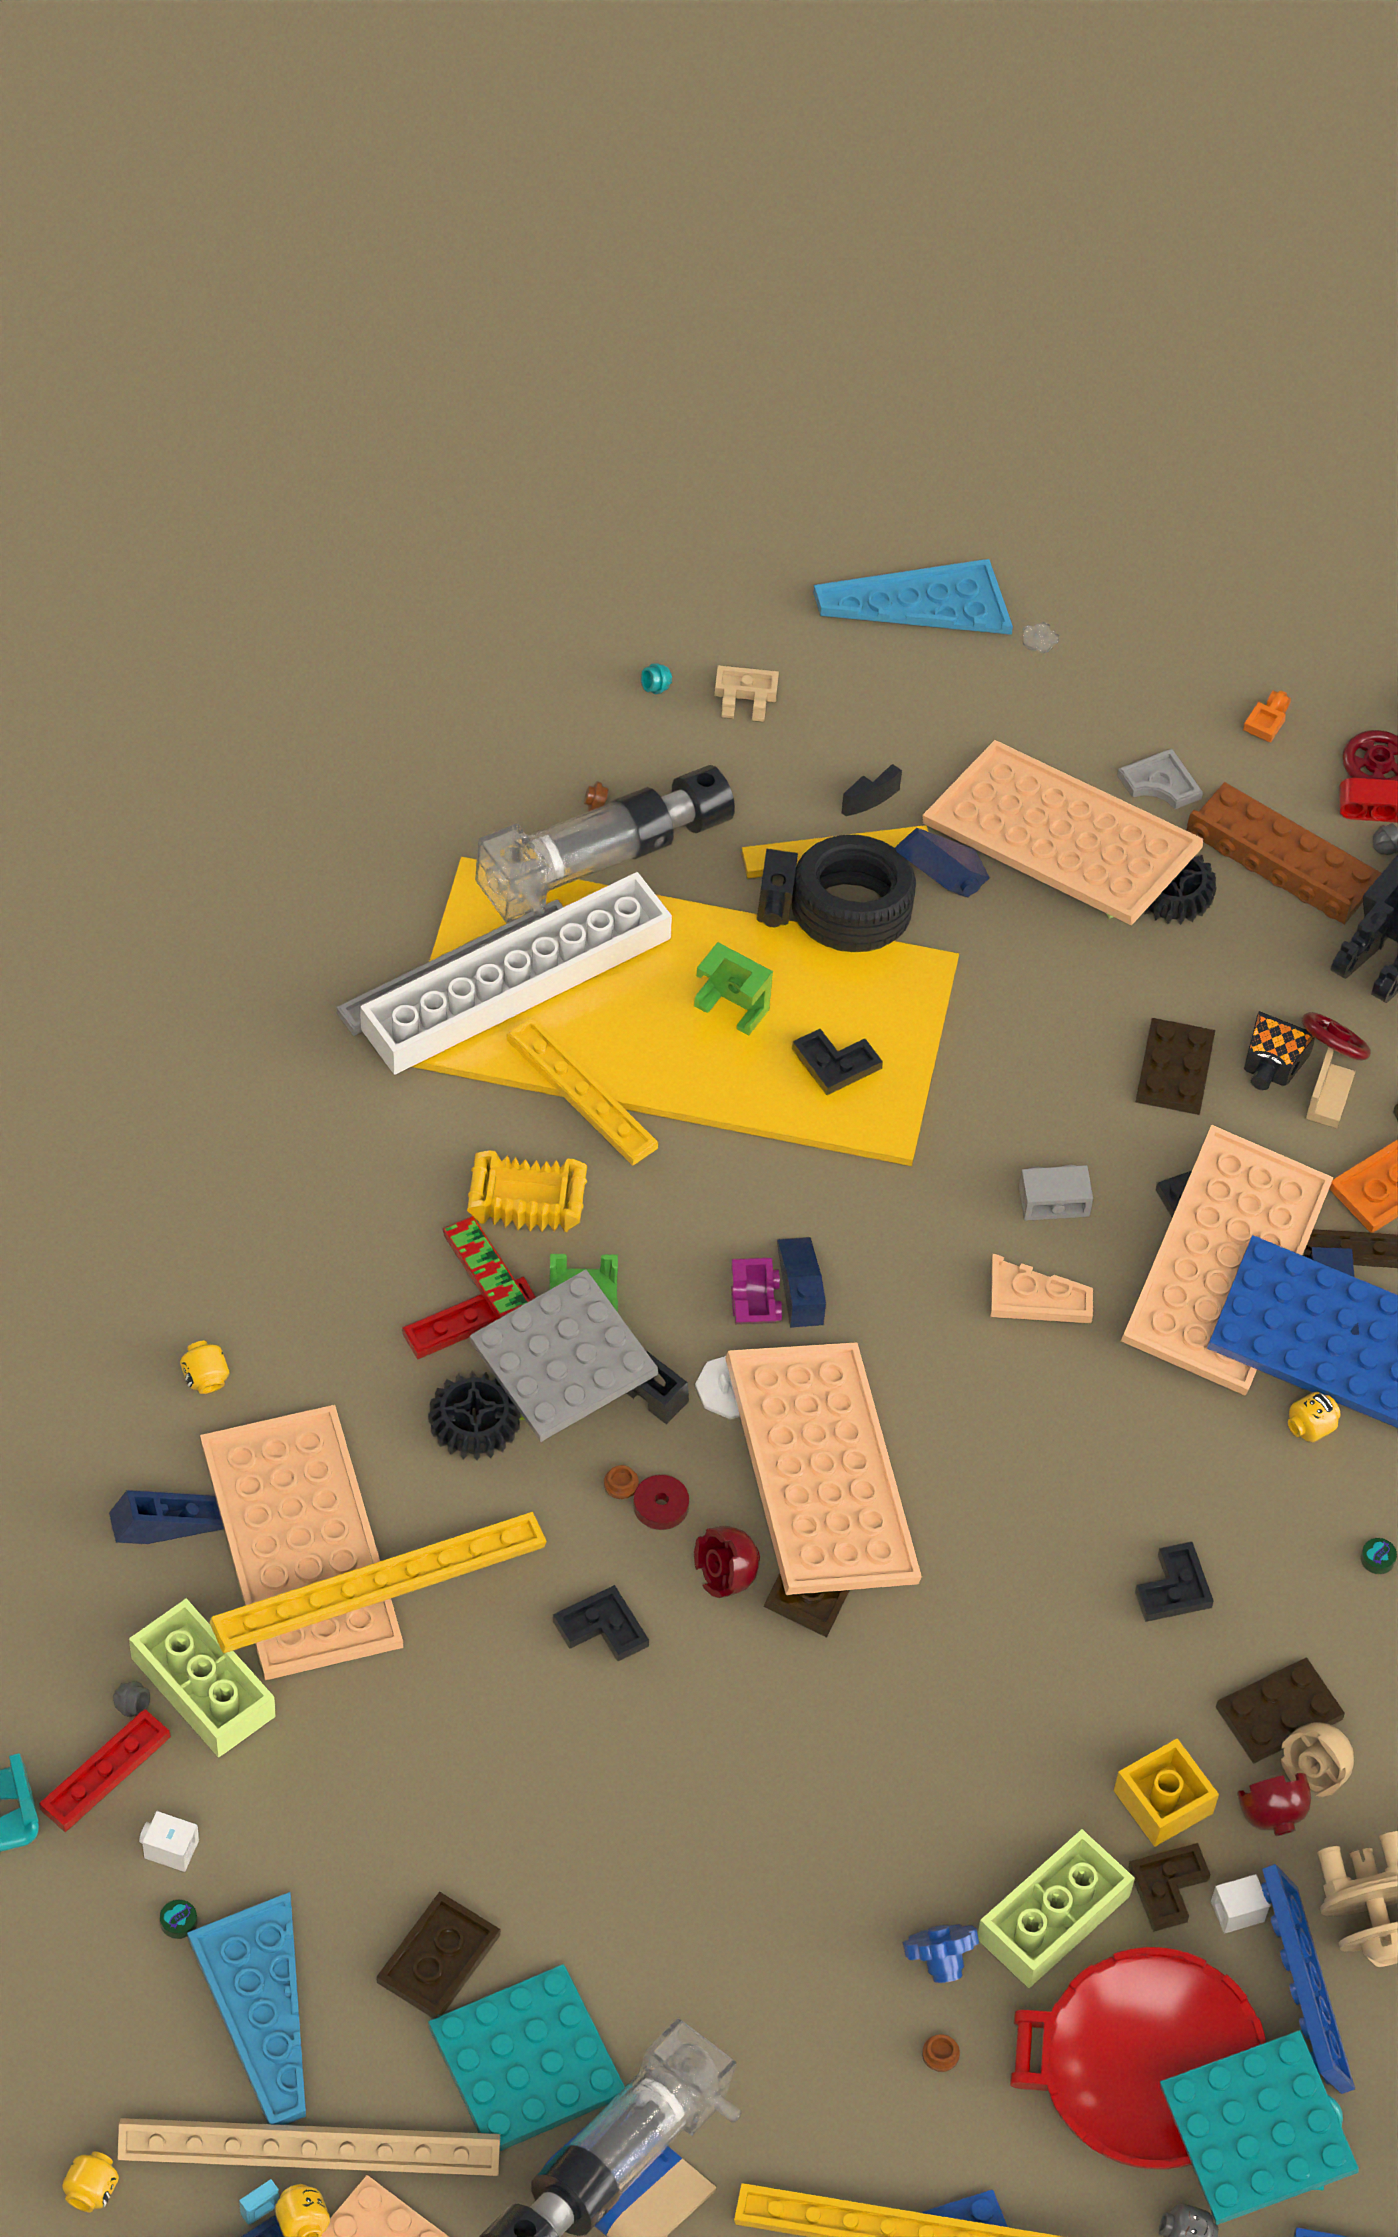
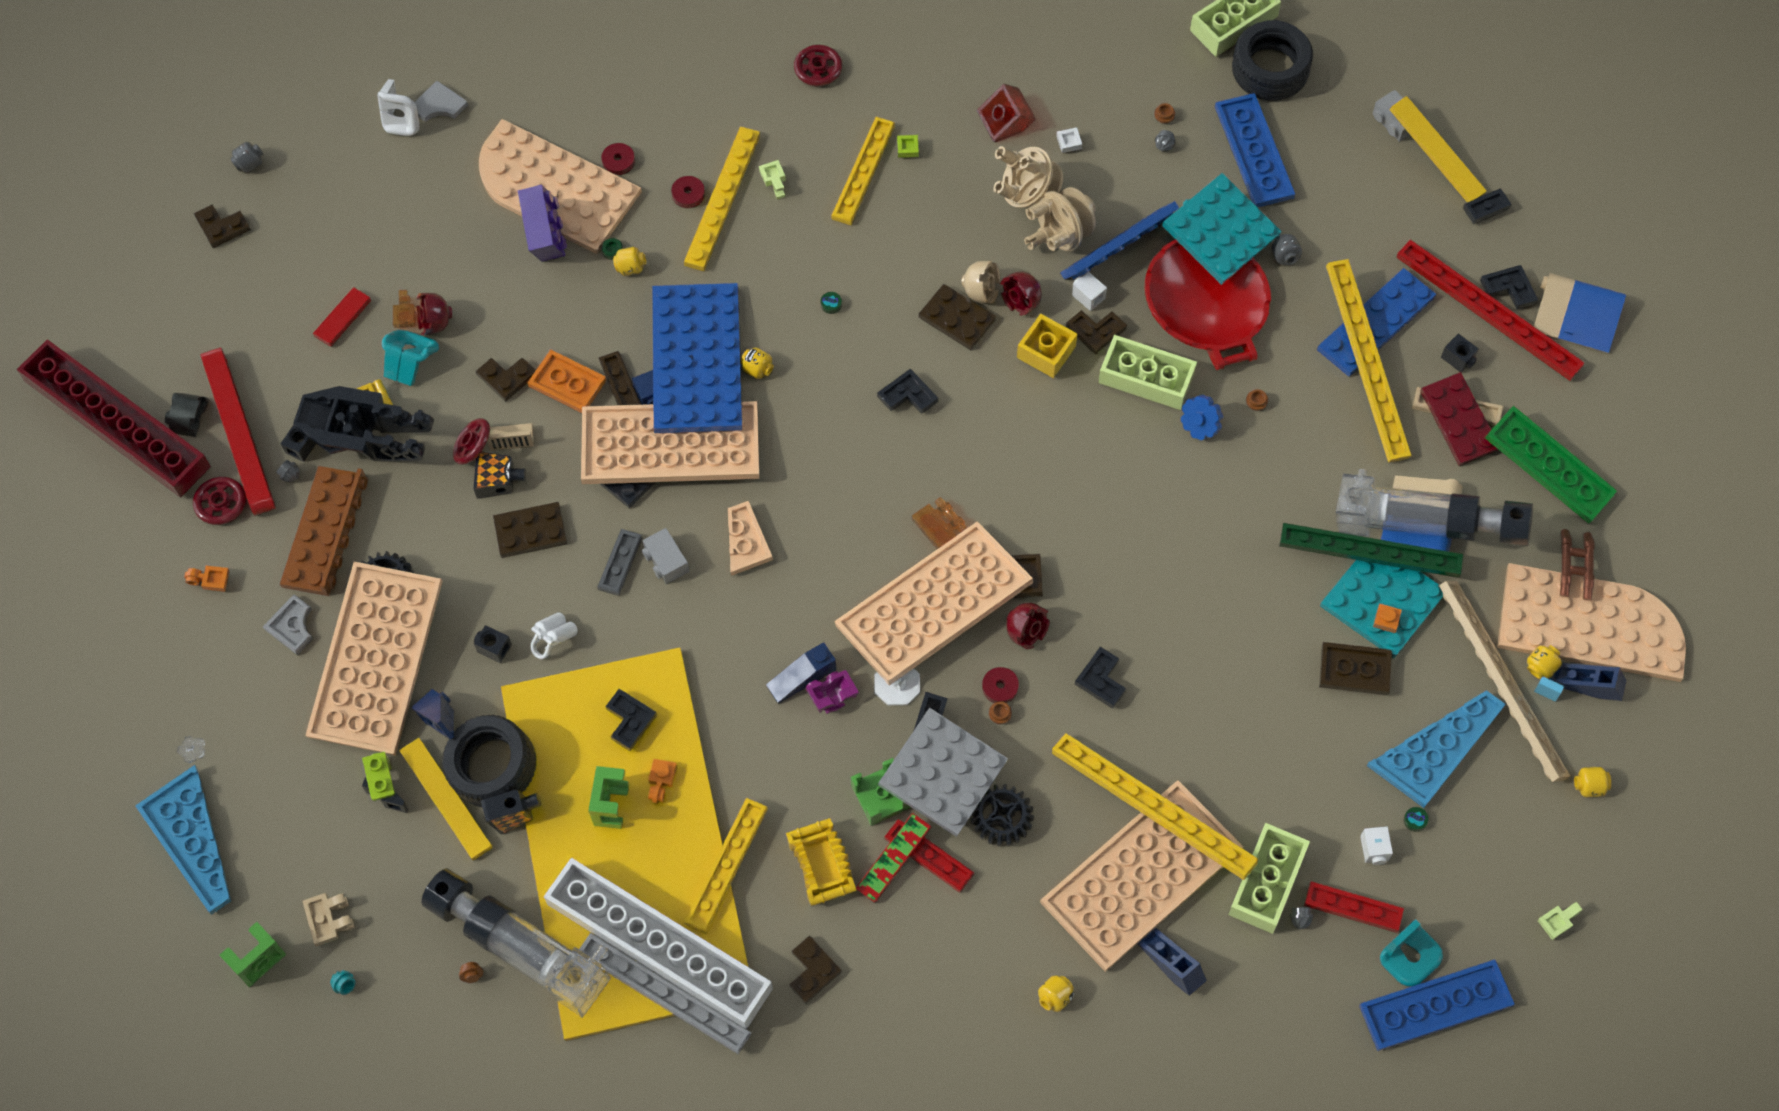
camera: 110 degrees left, 10 degrees up
(397, 1141) = (818, 973): none -> dark brown plate
(486, 2029) = (1387, 618): none -> orange plate
(601, 2062) = (1371, 550): none -> dark green plate
(728, 602) = (258, 960): none -> bright green panel
(740, 1070) = (661, 774): none -> orange plate
(899, 783) = (378, 776): none -> lime bracket
(943, 1524) = (934, 527): none -> clear orange plate
(1005, 1027) = (553, 631): none -> white piece
(1022, 963) = (498, 650): none -> black brick
(1076, 1145) = (620, 562): none -> dark grey tile

